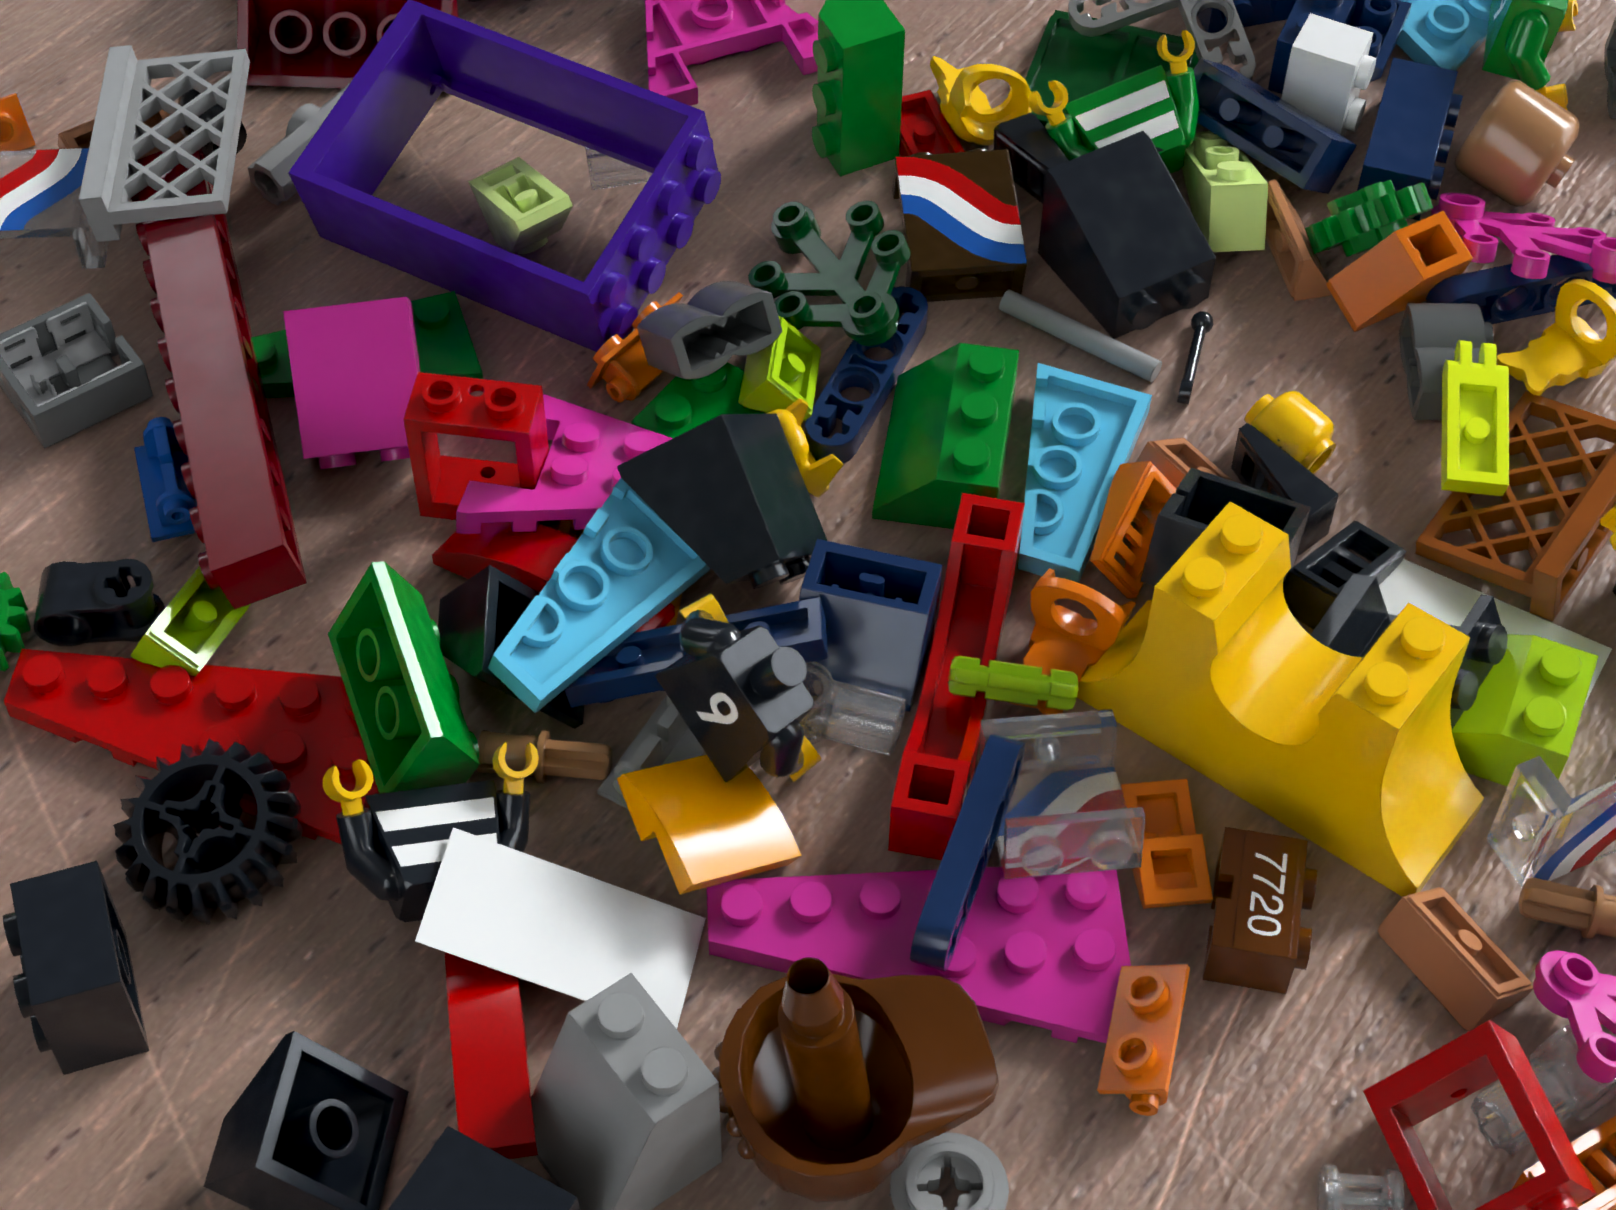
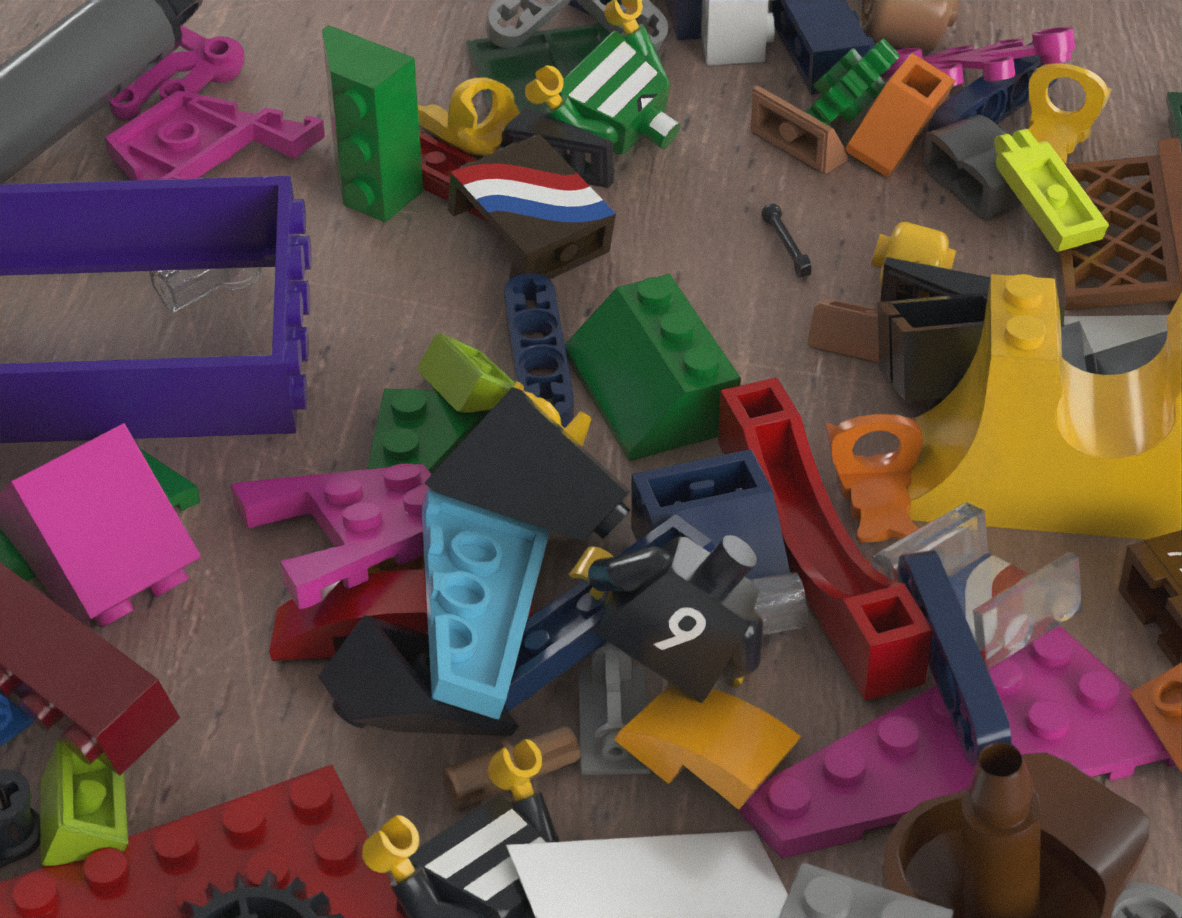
camera: 30 degrees left, 10 degrees down
(401, 686) = (353, 749): green slope -> none
(501, 413) = (230, 494): red window -> none
(520, 206) = (146, 323): yellowish green slope -> none
(624, 362) = (334, 418): orange hinge -> none
(709, 329) = (393, 361): dark grey brick -> none
(865, 315) = (515, 301): dark green plant -> none
(1013, 683) = (870, 519): lime axle -> none
(1075, 447) = (766, 338): medium azure wing -> none
(1080, 335) = (685, 259): light grey bar -> none
(1124, 236) = (674, 168): black slope -> none
(1131, 486) = (854, 362): orange slope -> none
(1172, 853) = (1106, 601): orange slope -> none
(1225, 194) = (723, 116): yellowish green slope -> none
(1269, 128) = (721, 55): dark blue brick -> none

